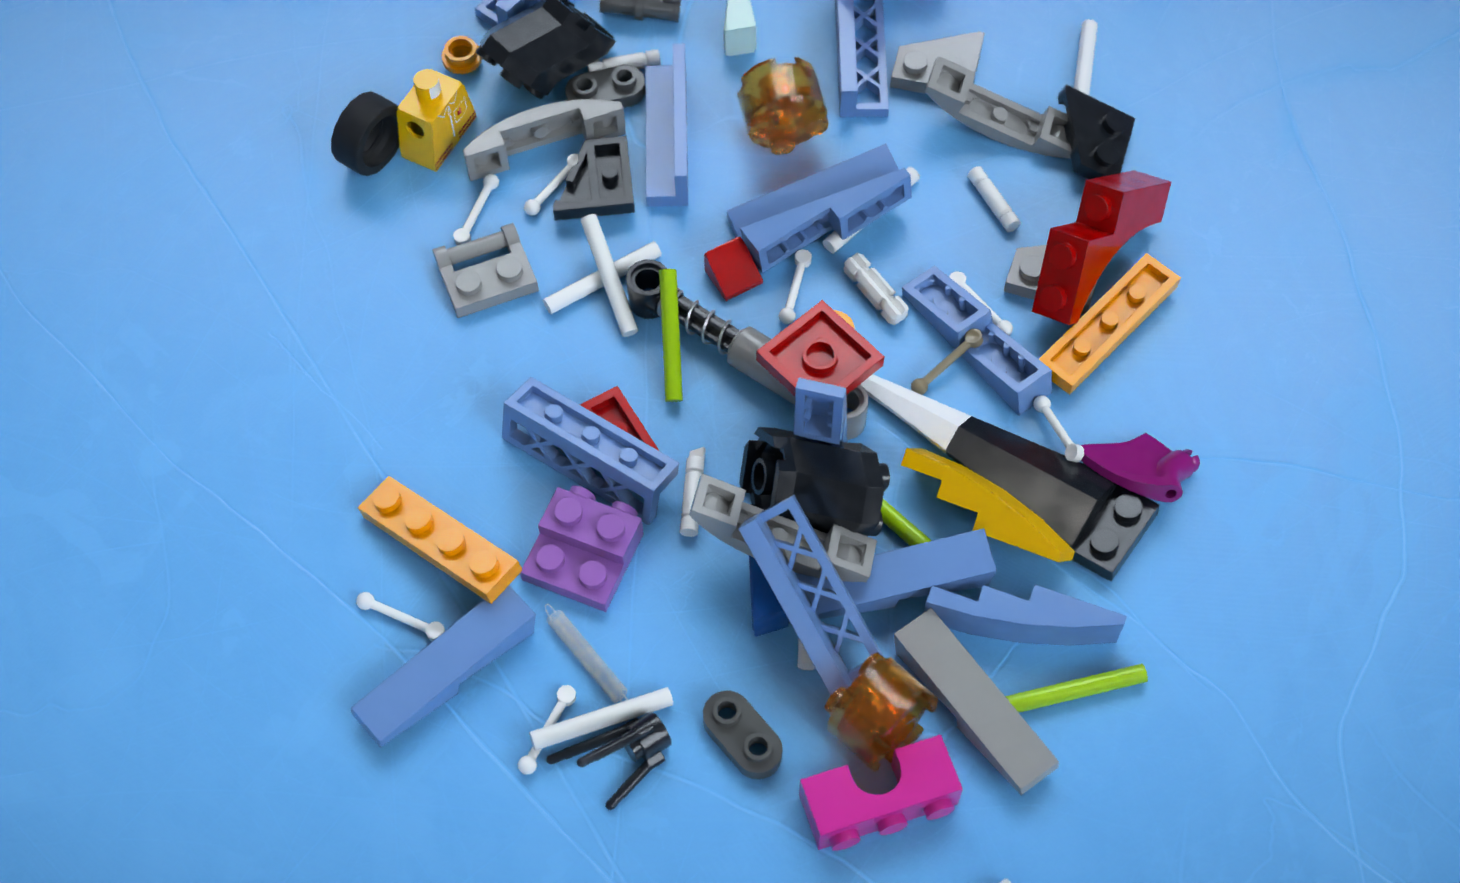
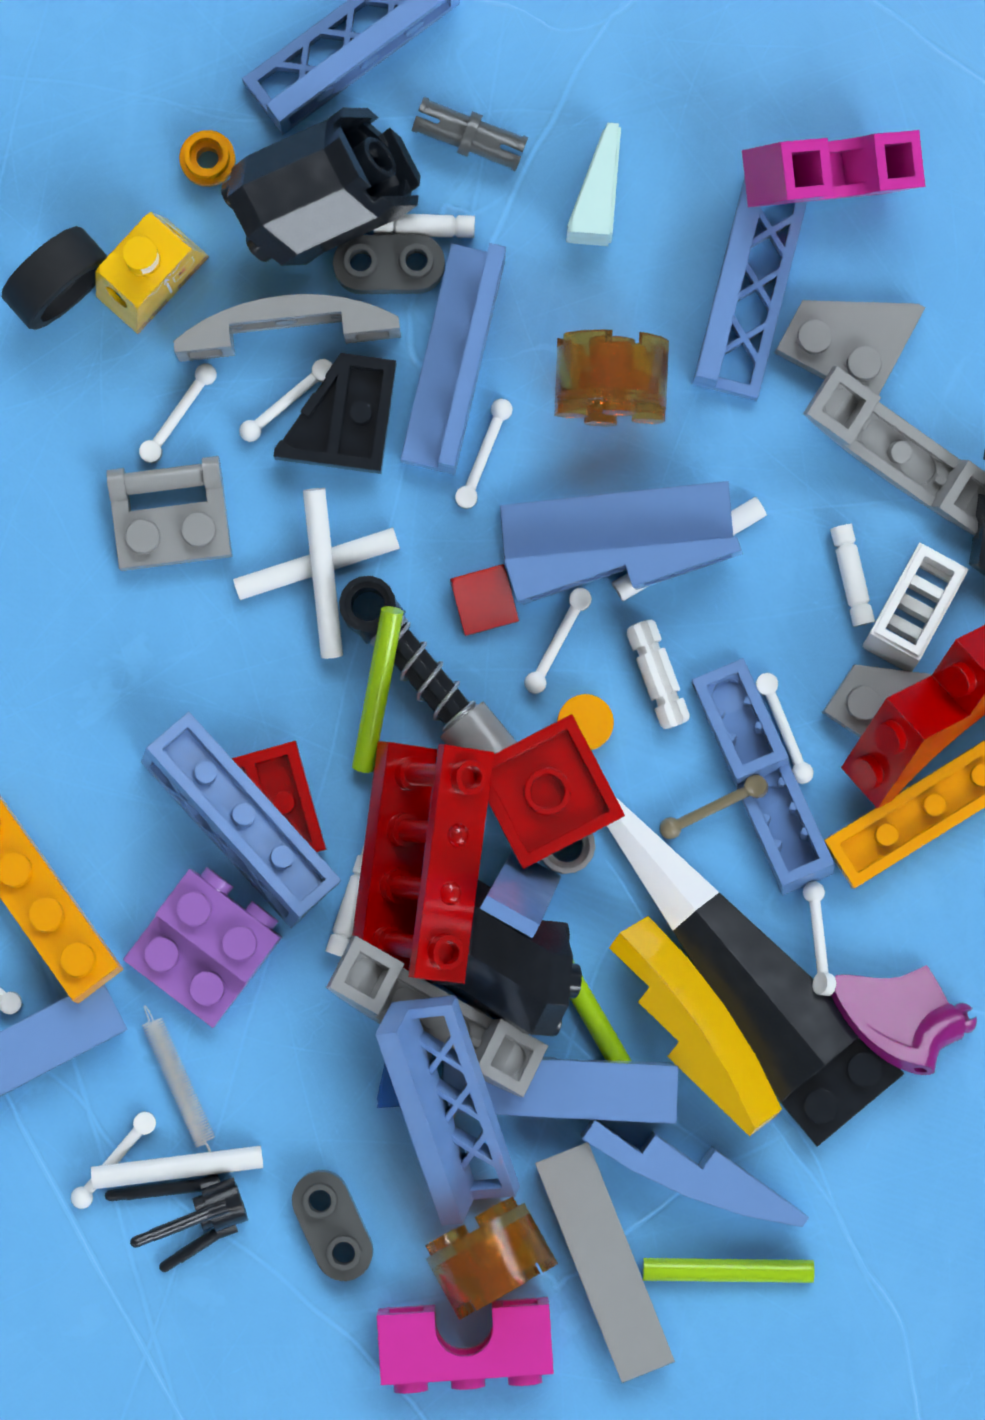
camera: 10 degrees right, 25 degrees up
(701, 213) = (466, 496): none -> white hinge
(759, 401) = (395, 853): none -> red fence
(1044, 208) = (891, 646): none -> white slope

